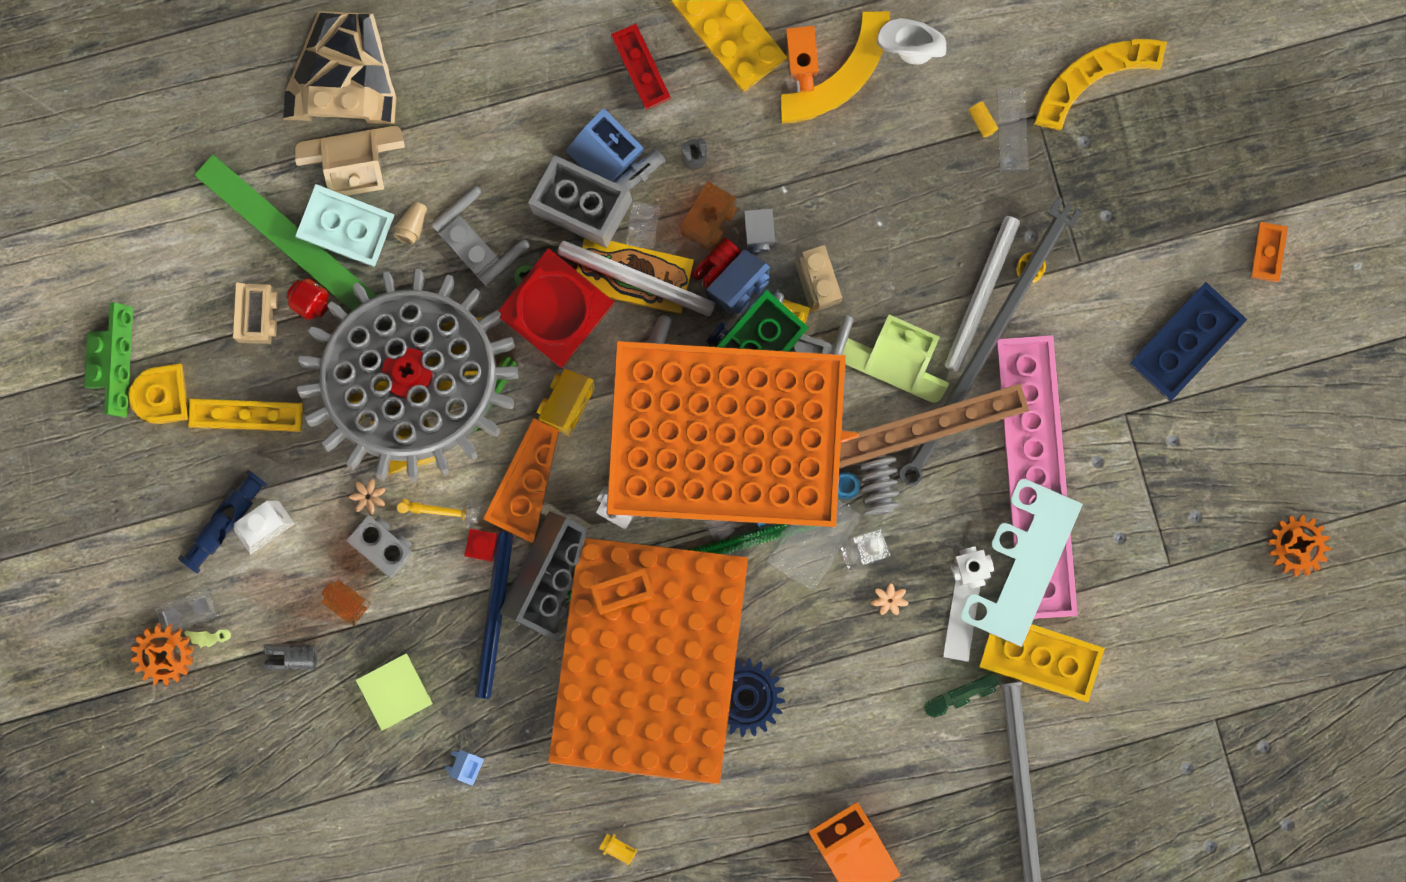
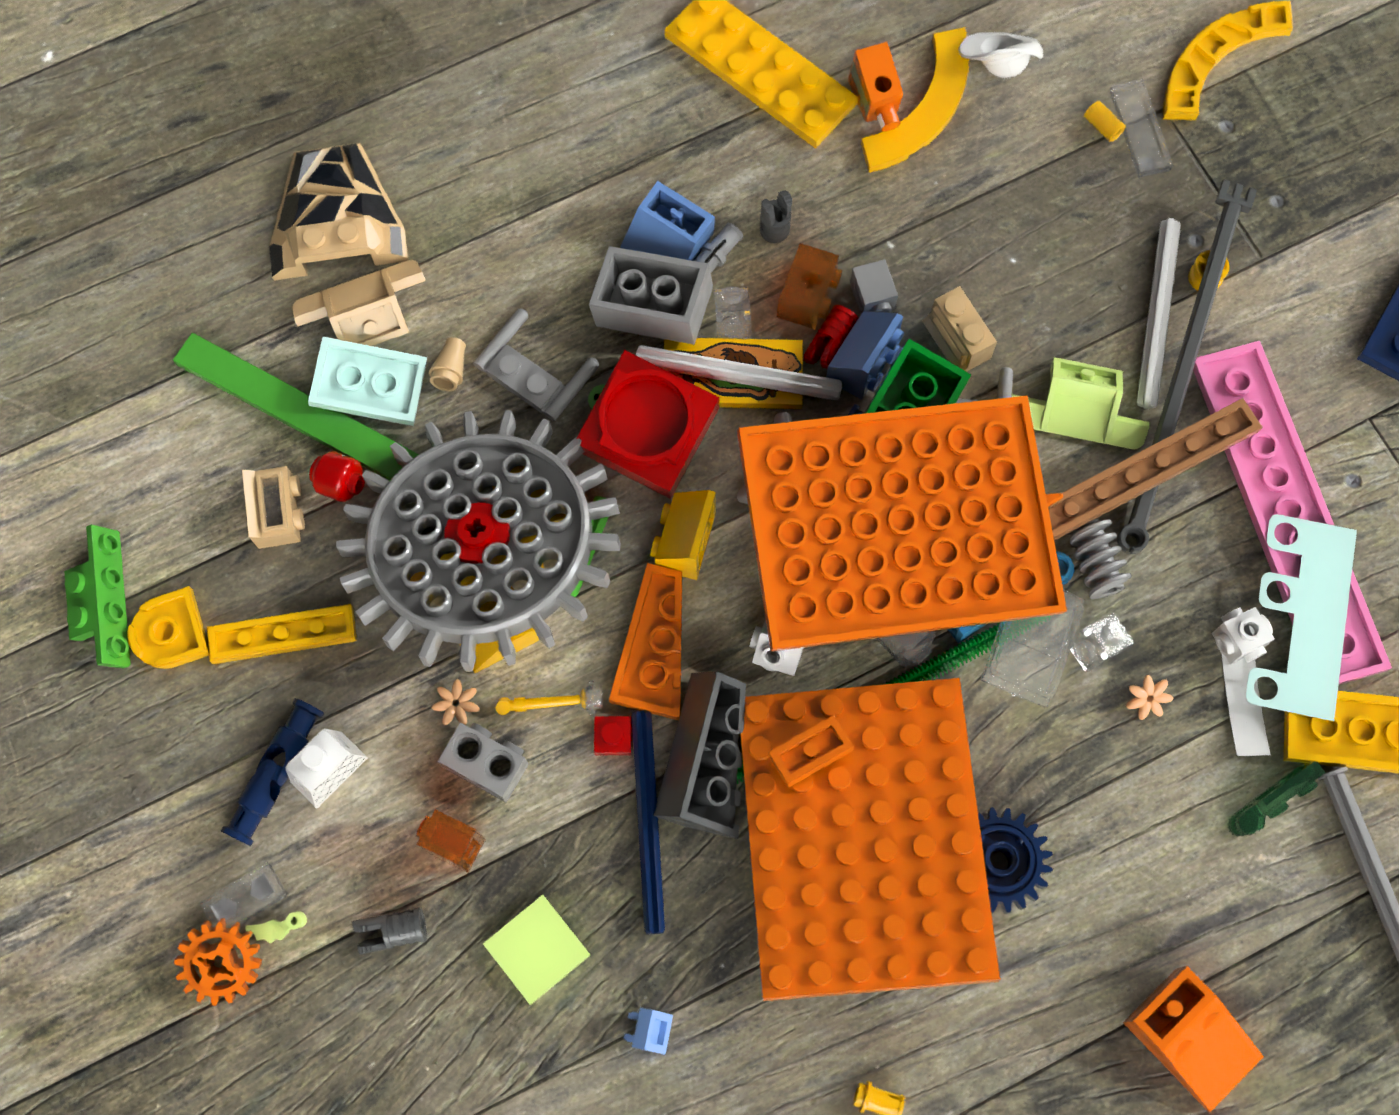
camera: 10 degrees left, 10 degrees down
(640, 67) = (689, 139): red plate -> none

